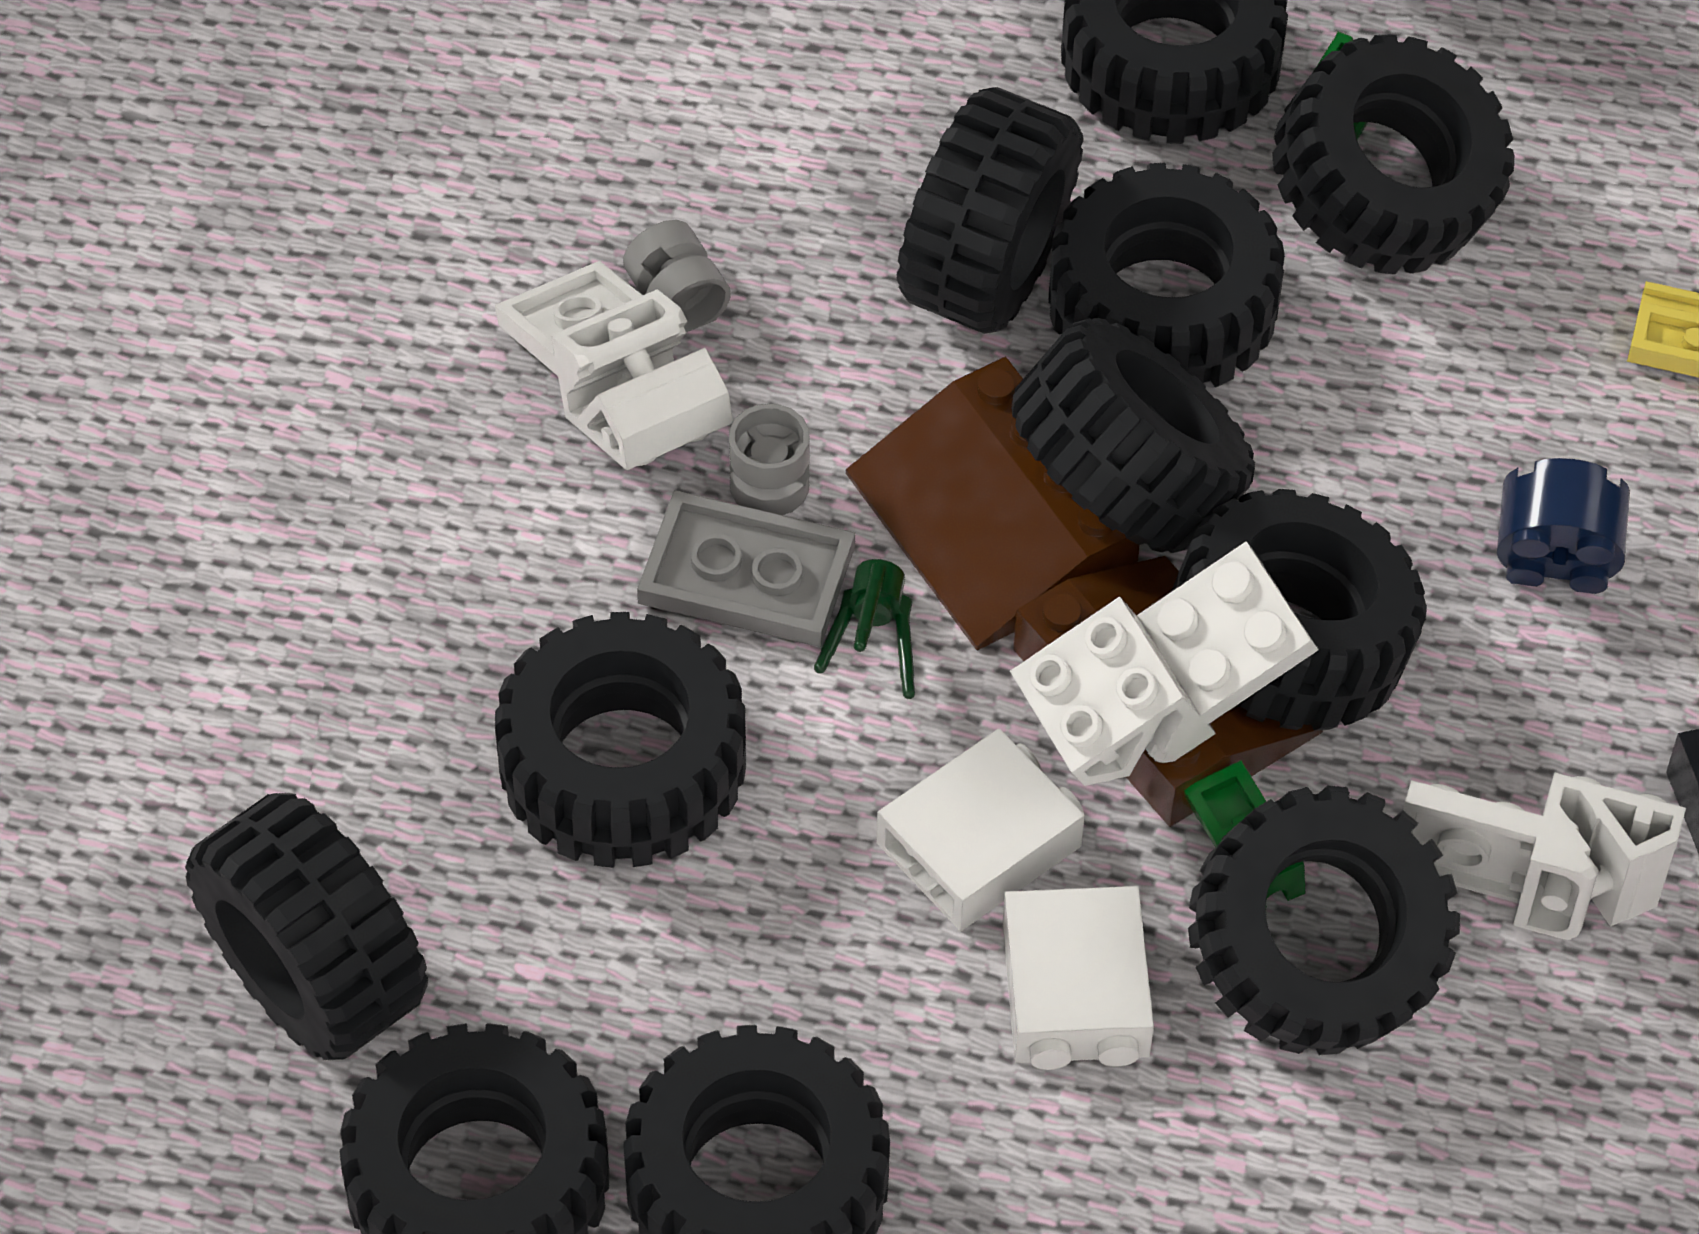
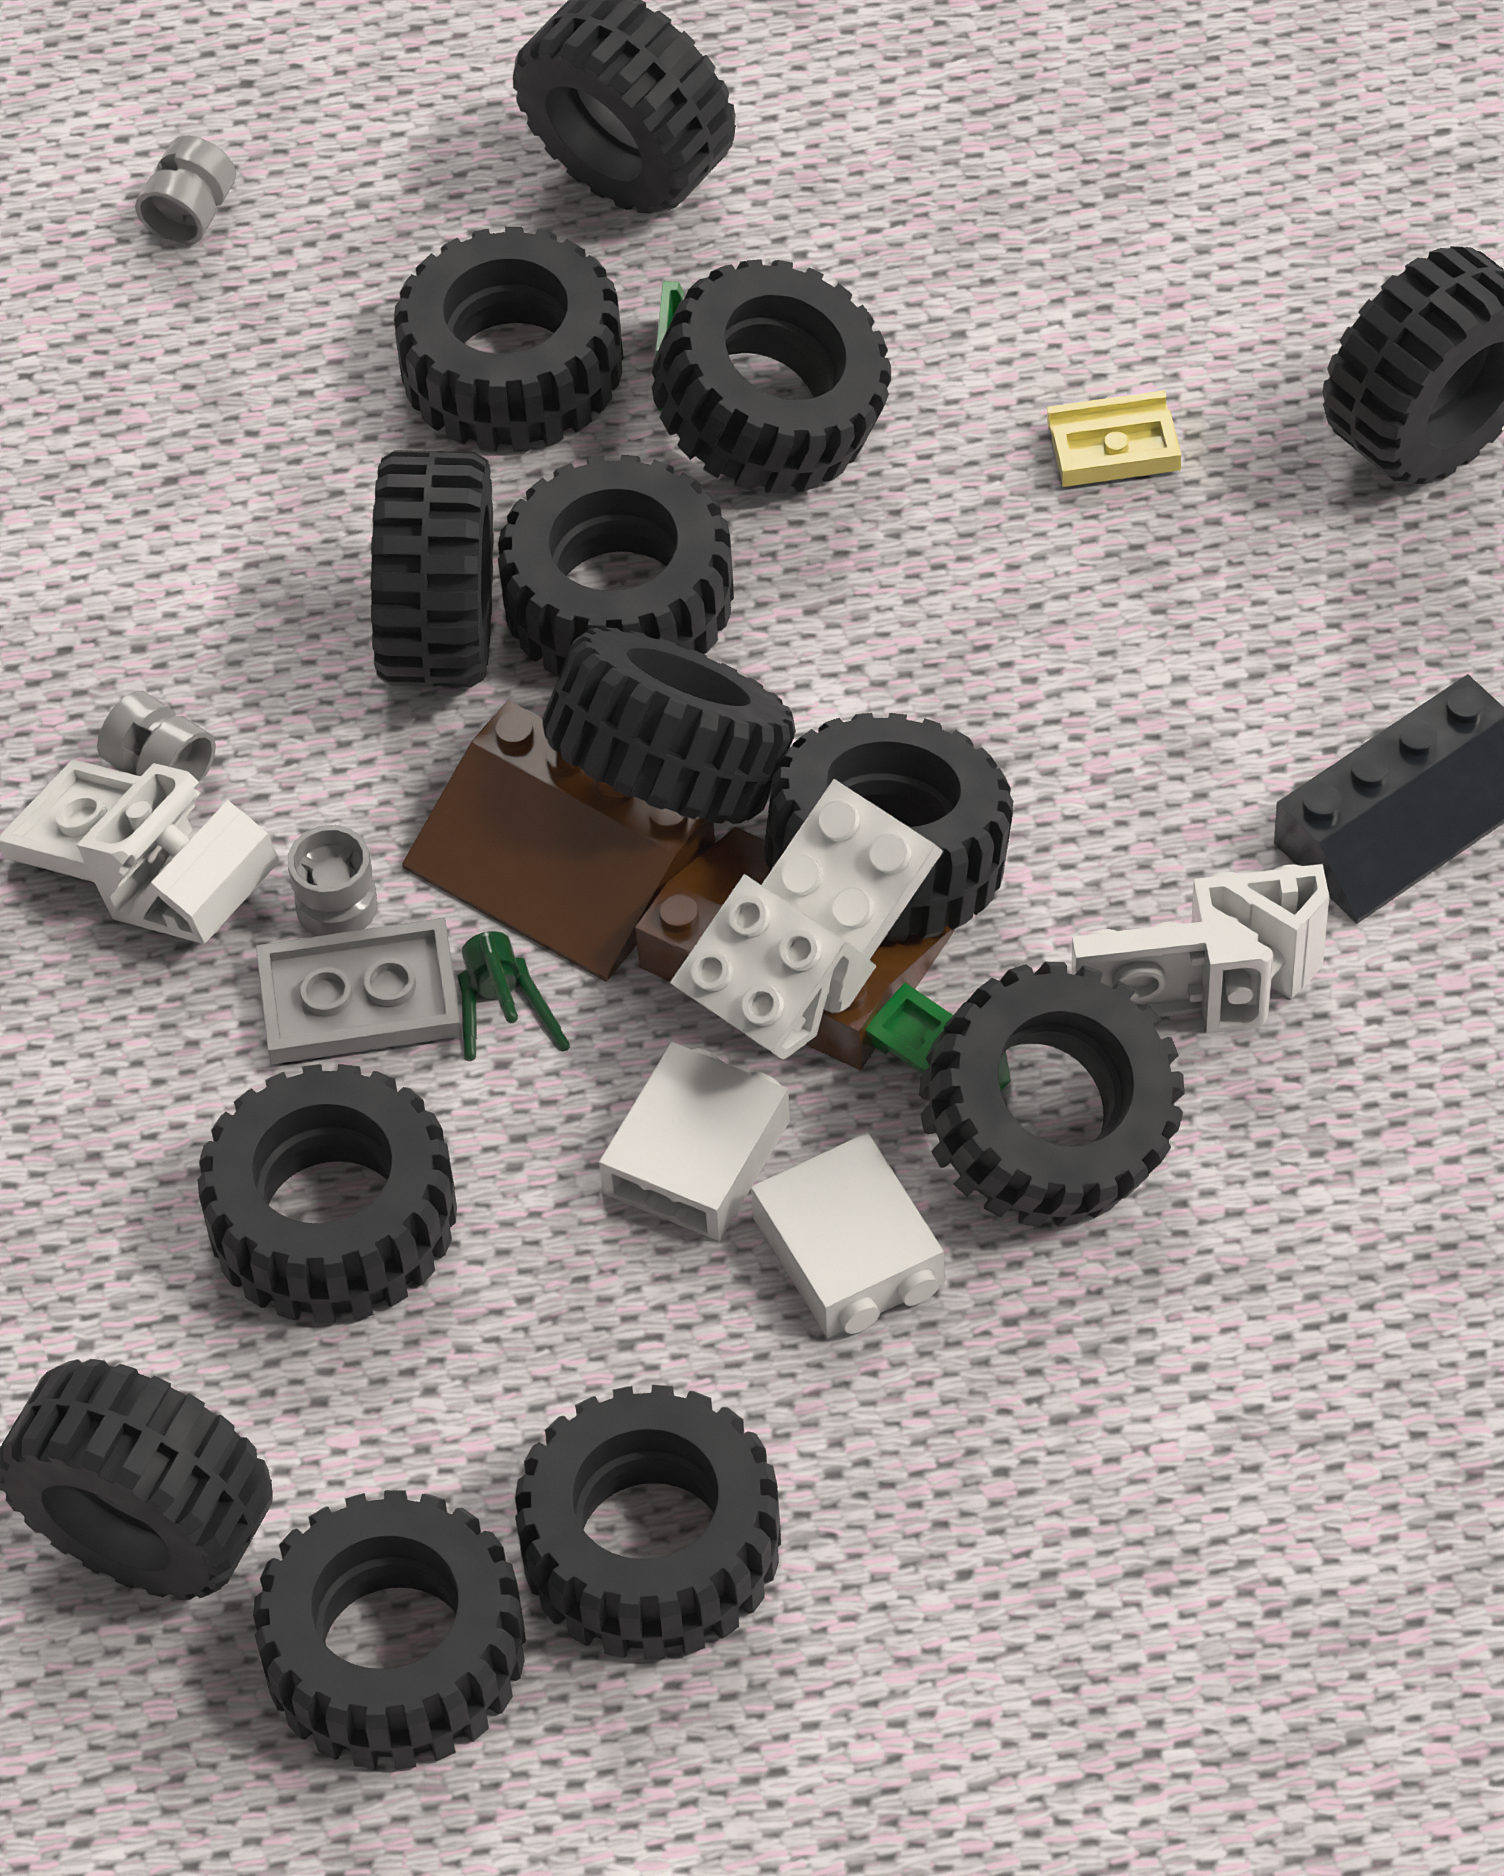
camera: 20 degrees left, 0 degrees up
(1563, 525) = (1084, 656): dark blue brick -> none

